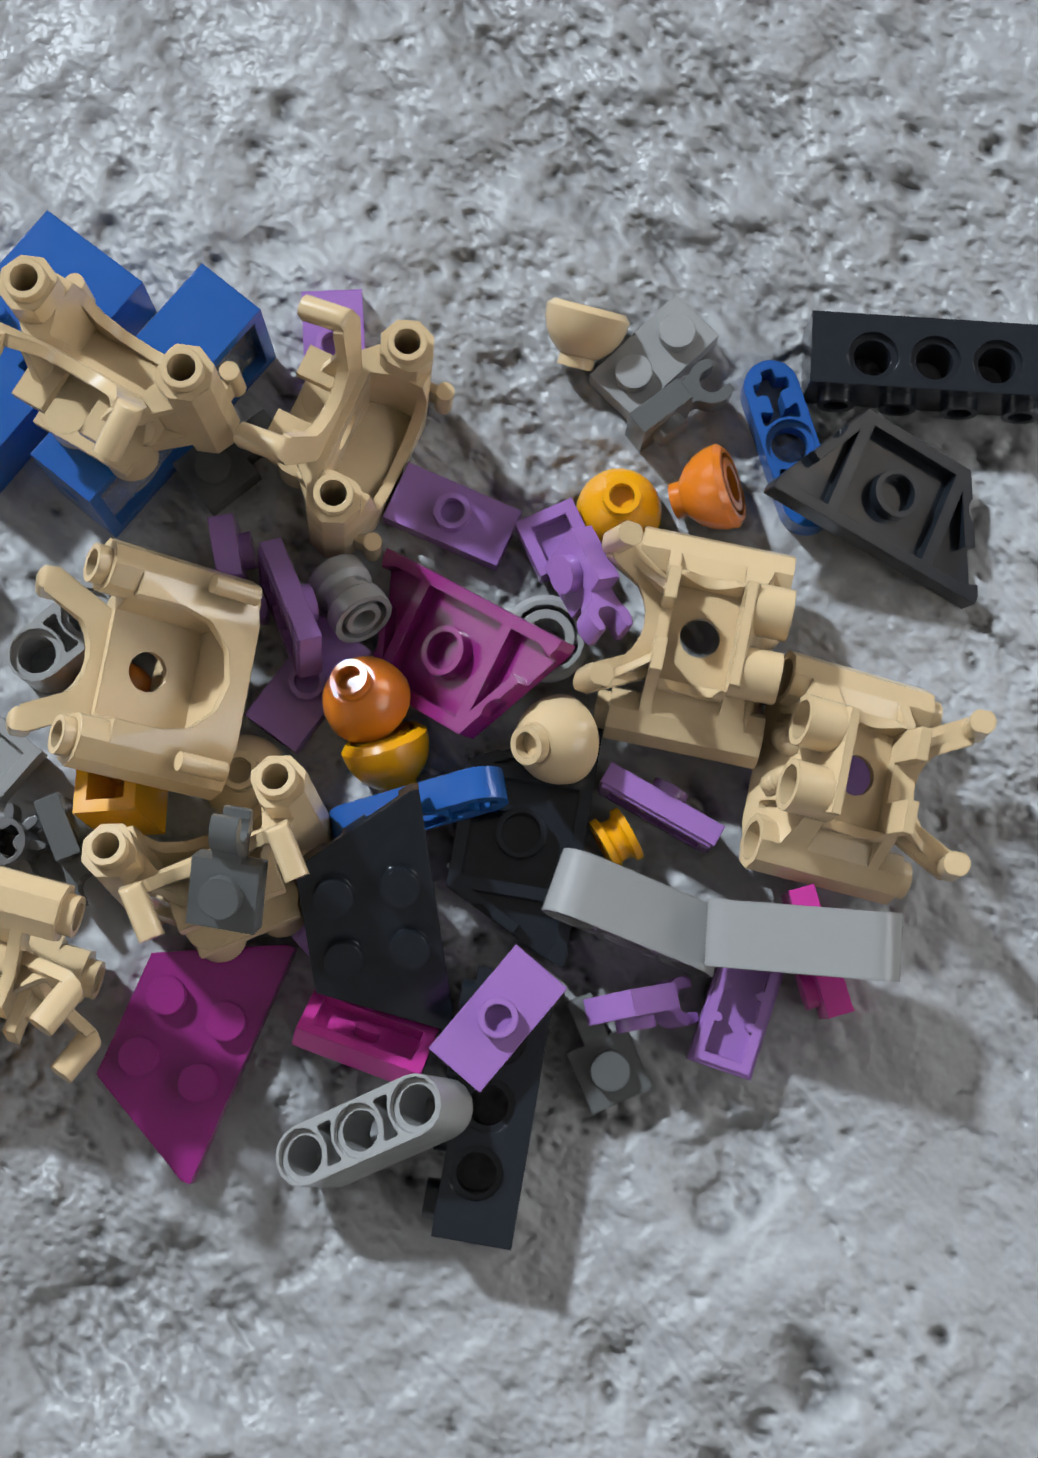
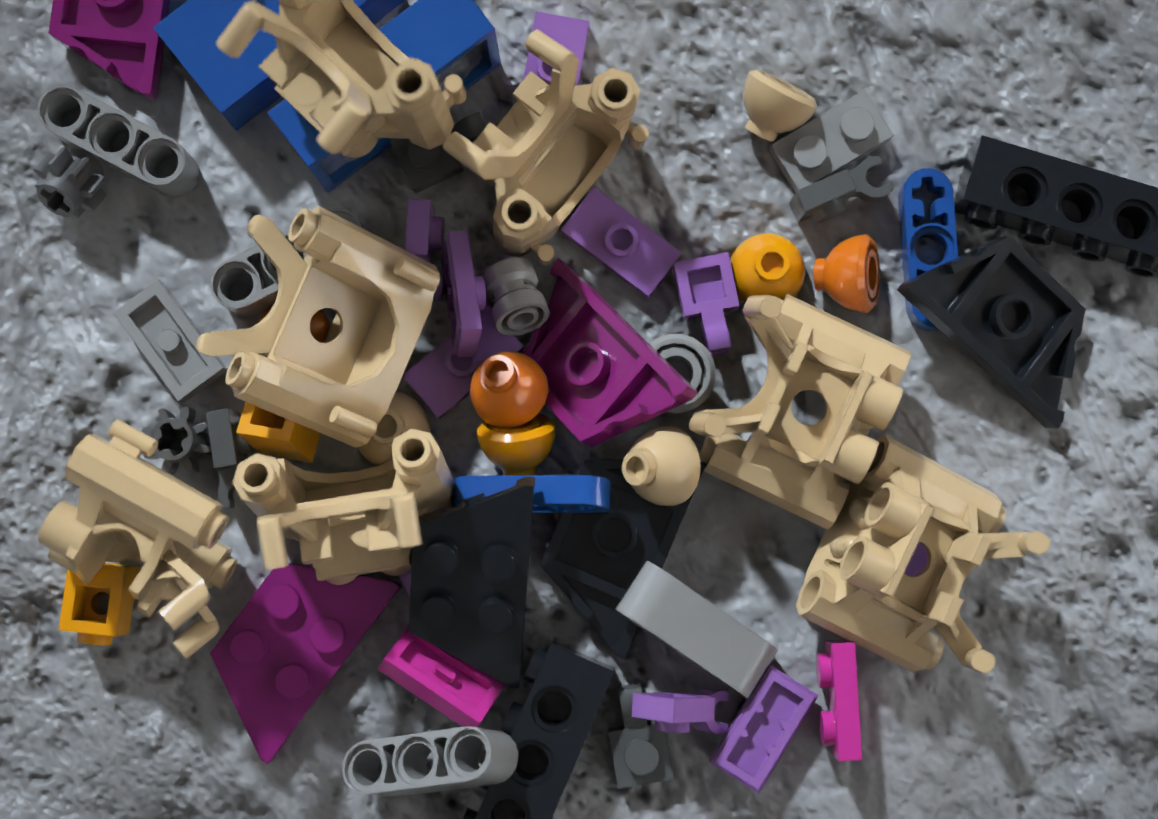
camera: 20 degrees right, 5 degrees up
(224, 881) = (349, 531): dark grey plate -> none
(497, 1018) = (556, 694): medium lavender plate -> none
(585, 585) = (720, 335): medium lavender plate -> none
(616, 838) = (694, 560): light orange bush -> none
(661, 806) = (741, 541): medium lavender plate -> none
(804, 940) = (834, 692): light grey beam -> none

